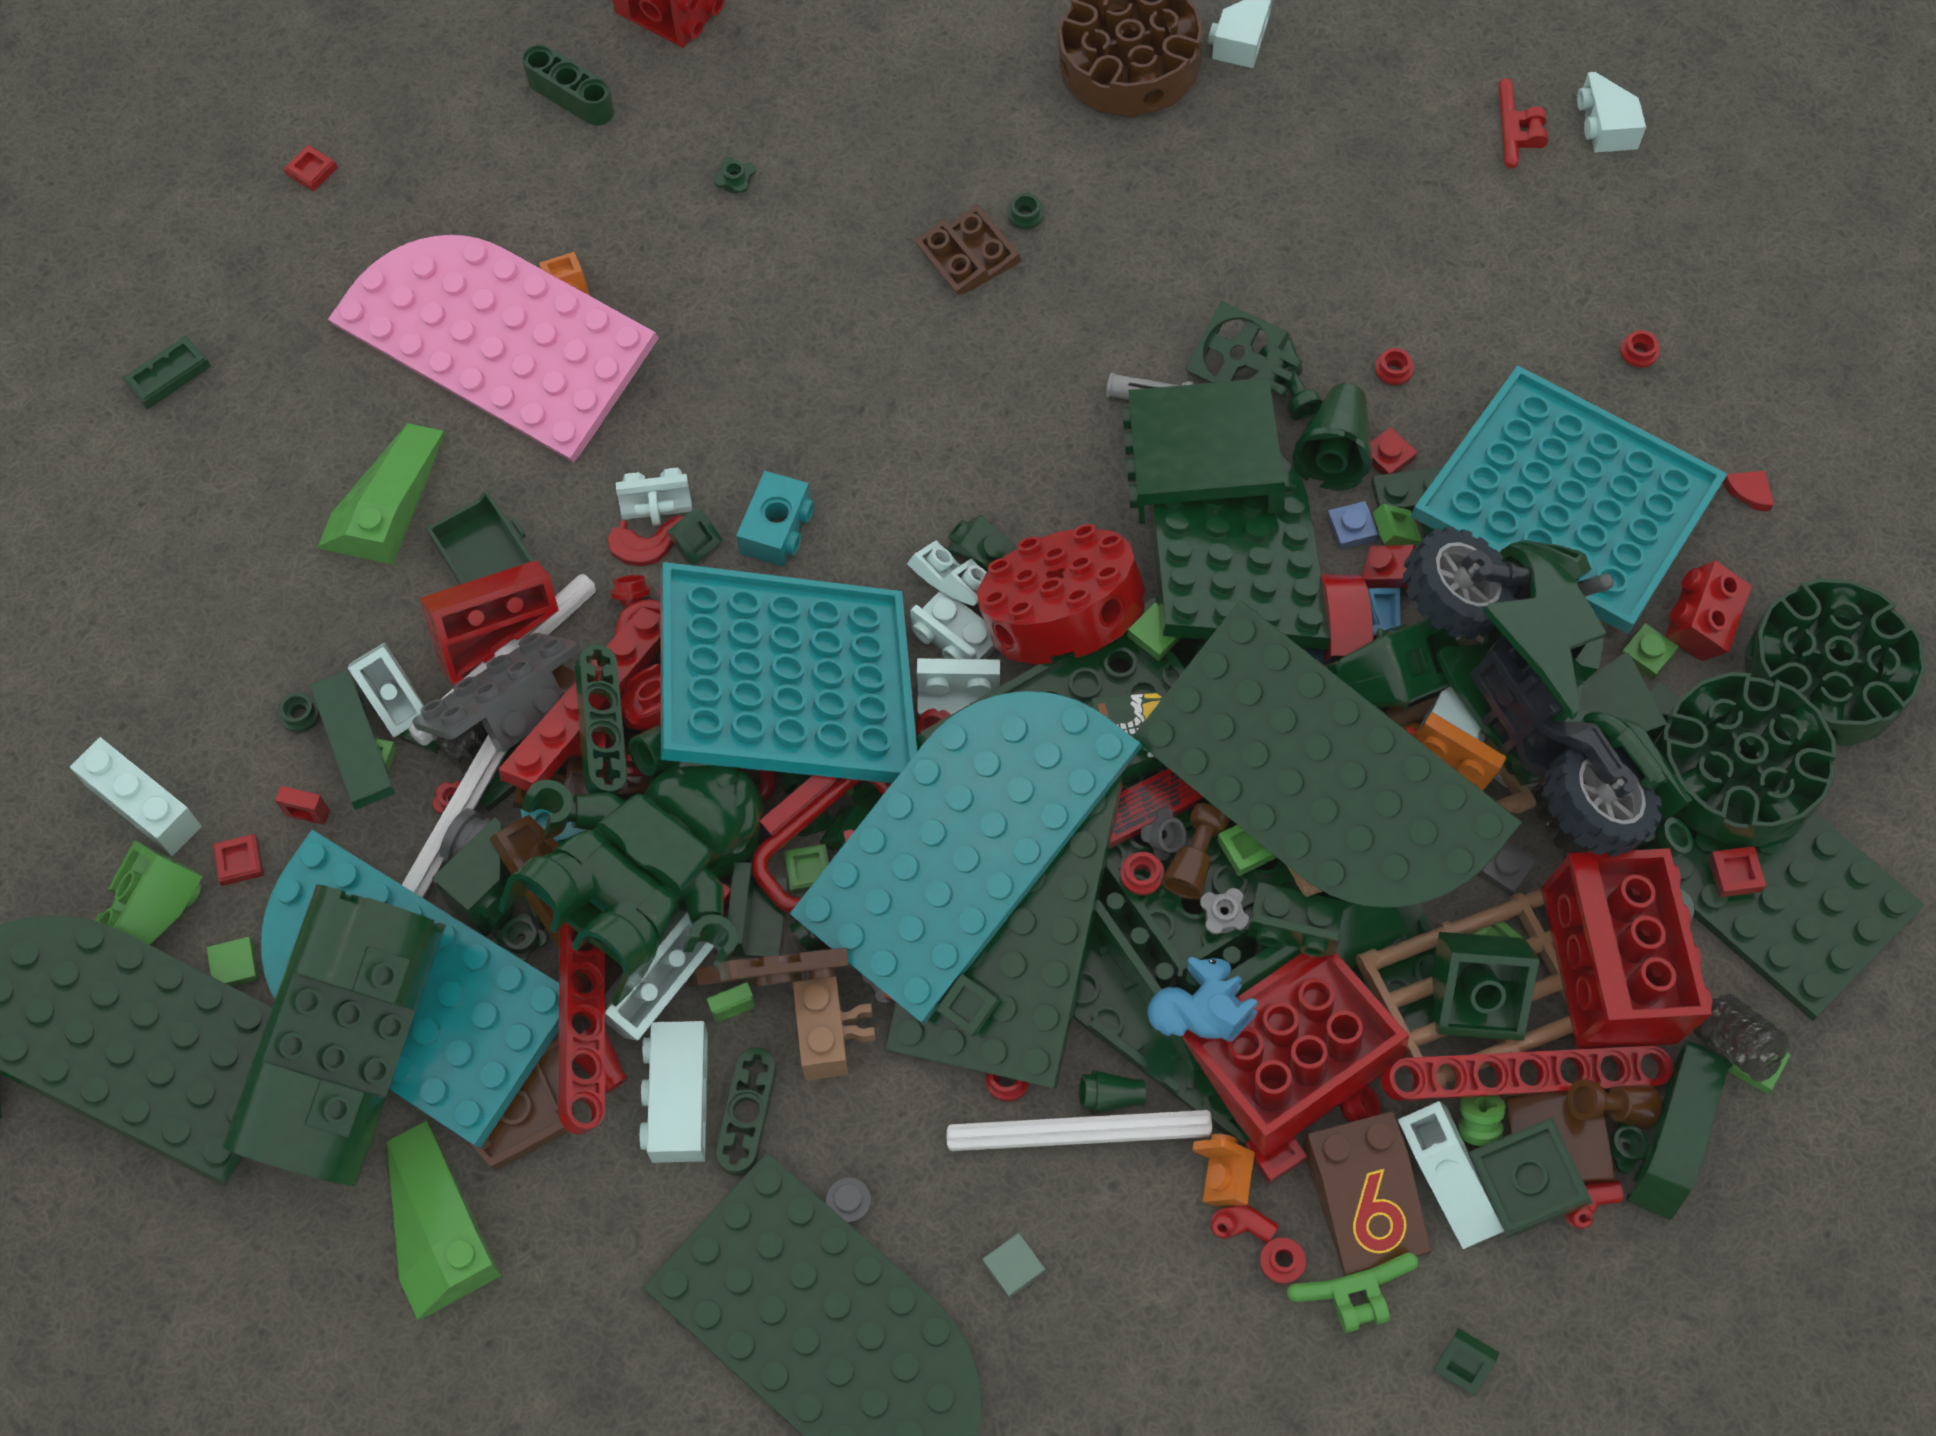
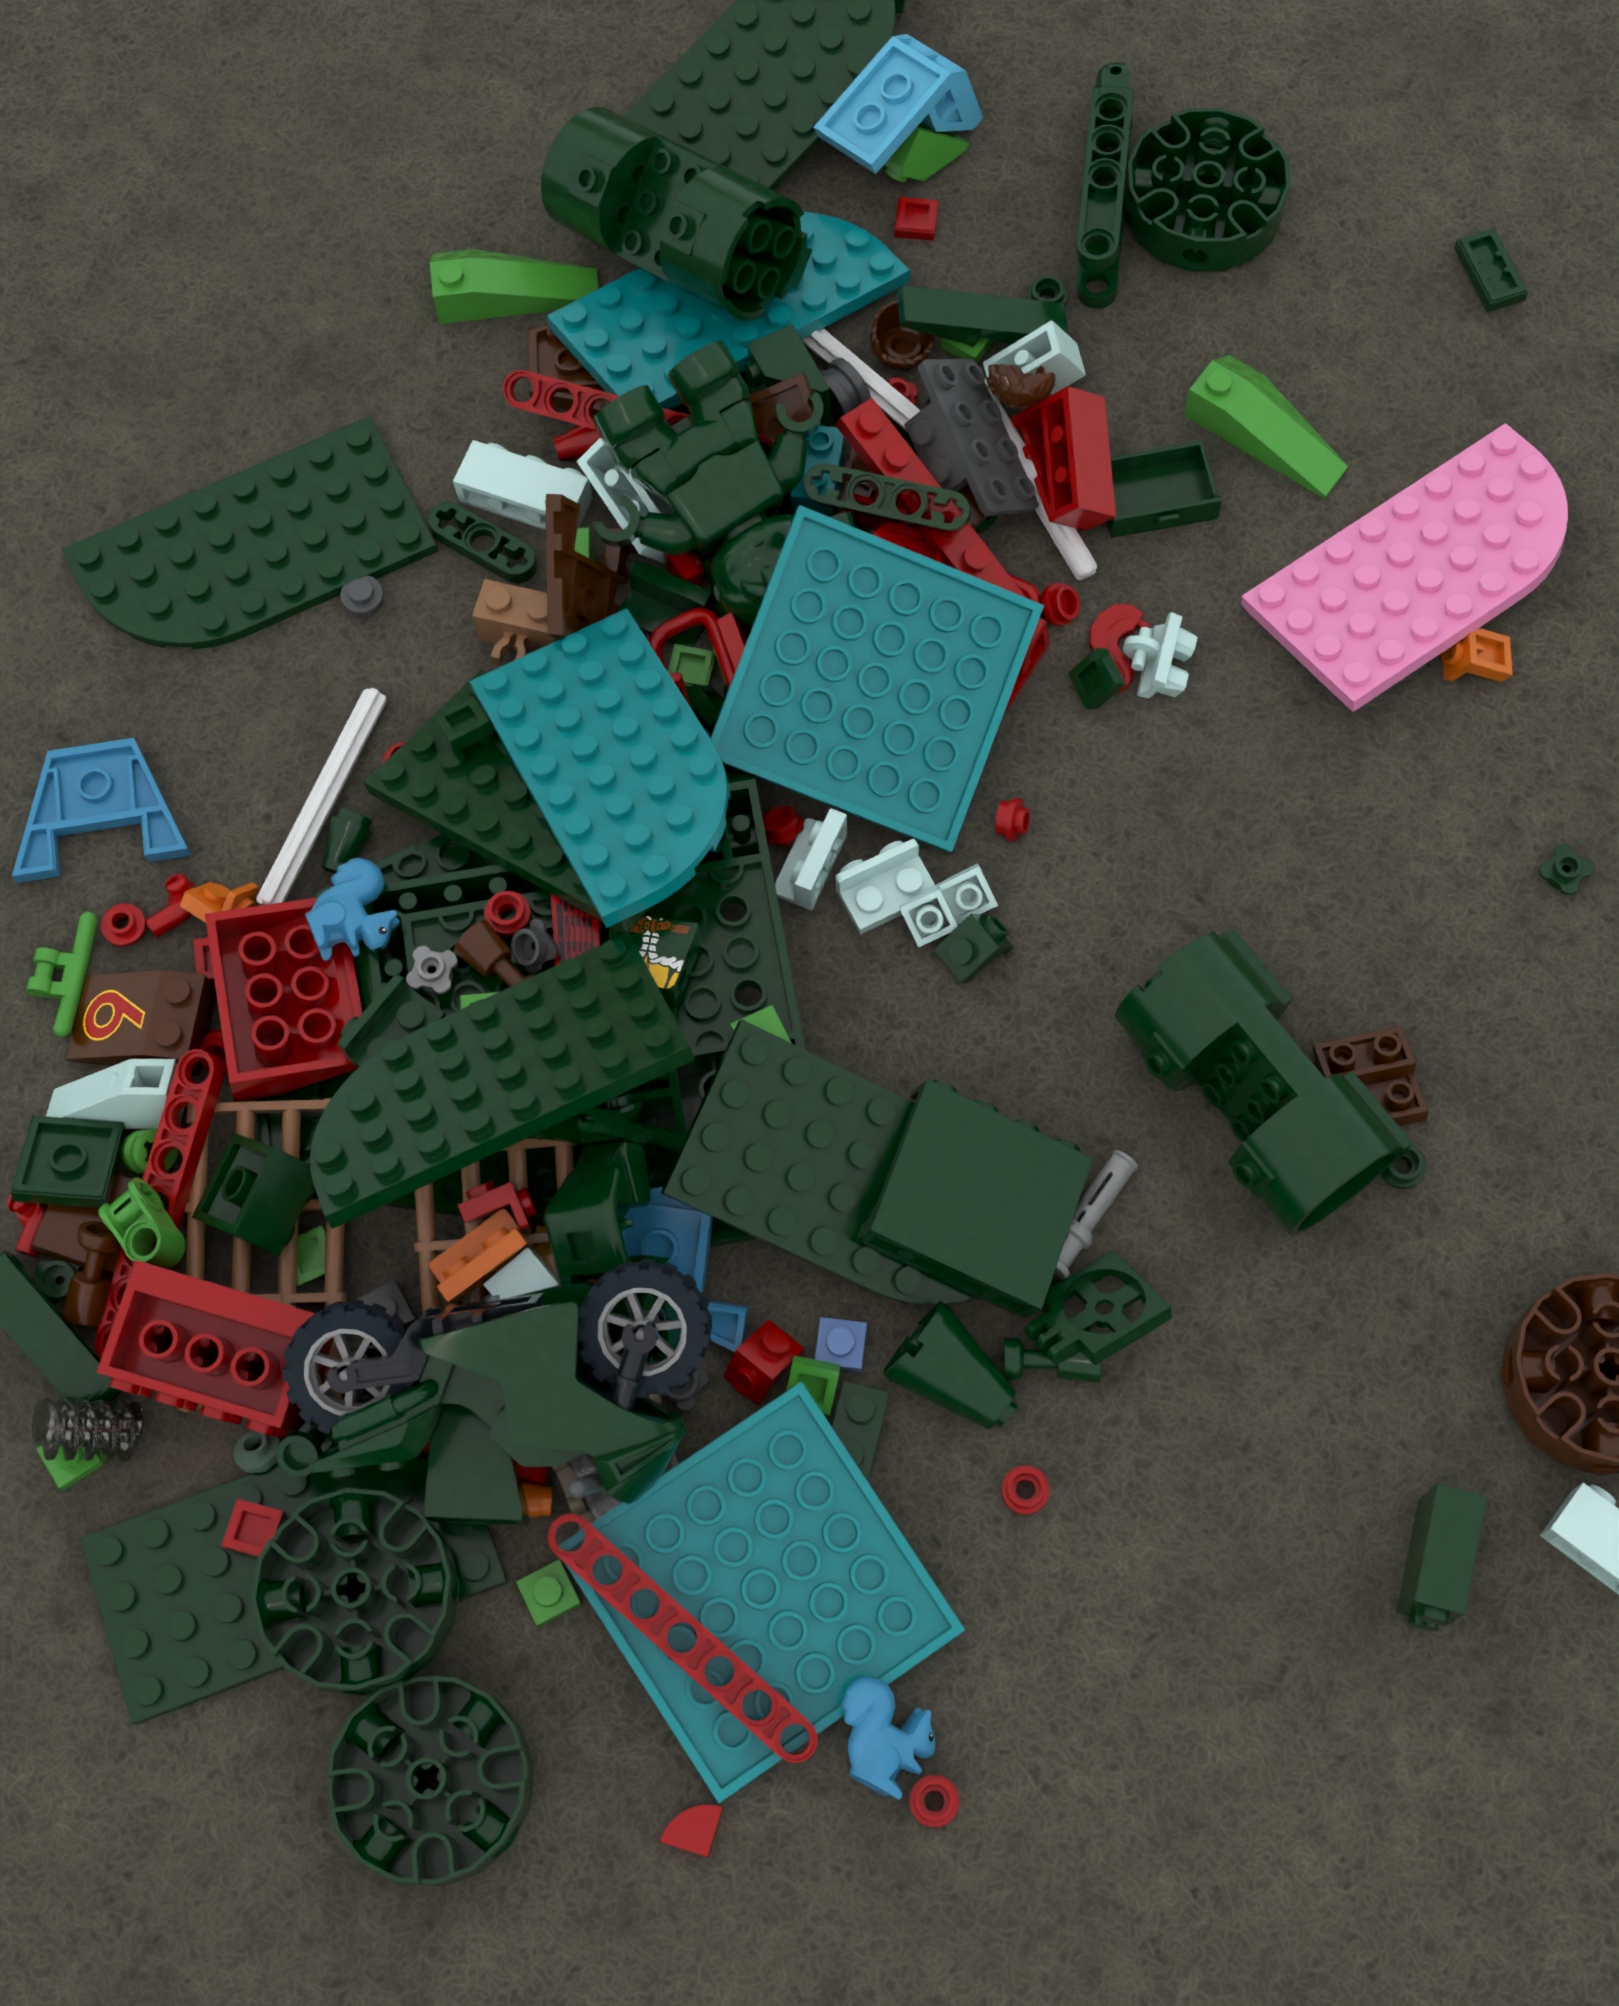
camera: 115 degrees right, 5 degrees up
(131, 891) = (893, 96): none -> medium azure bracket
(136, 796) = (1008, 146): light aqua brick -> none
(144, 608) = (1206, 190): none -> dark green brick
(213, 666) = (1104, 206): none -> dark green piece
(233, 962) = (816, 192): bright green tile -> none
(302, 805) = (943, 269): red tile -> none
(393, 817) = (897, 345): none -> reddish brown hair
(428, 667) = (1019, 389): none -> reddish brown hair
(775, 498) = (1078, 737): teal brick -> none
(853, 555) = (1012, 819): none -> red plate
(1013, 1265) = (239, 706): sand green tile -> none
(1045, 255) = (1302, 1135): none -> dark green cylinder
(1061, 595) = (854, 972): red brick -> none
(1164, 1360) = (93, 791): none -> dark azure wing
(1311, 97) = (1441, 1557): none -> dark green brick
(1347, 614) = (703, 1238): red arch -> none
(1391, 452) = (915, 1429): red plate -> none
(1512, 120) = (1340, 1824): red piece -> none
(1559, 1069) = (137, 1221): none -> bright green piece
(1612, 115) = (1292, 1956): light aqua slope -> none
(1623, 385) = (878, 1747): none -> dark azure animal
(1633, 534) = (695, 1659): none -> red beam
(1708, 611) = (556, 1673): red brick -> none

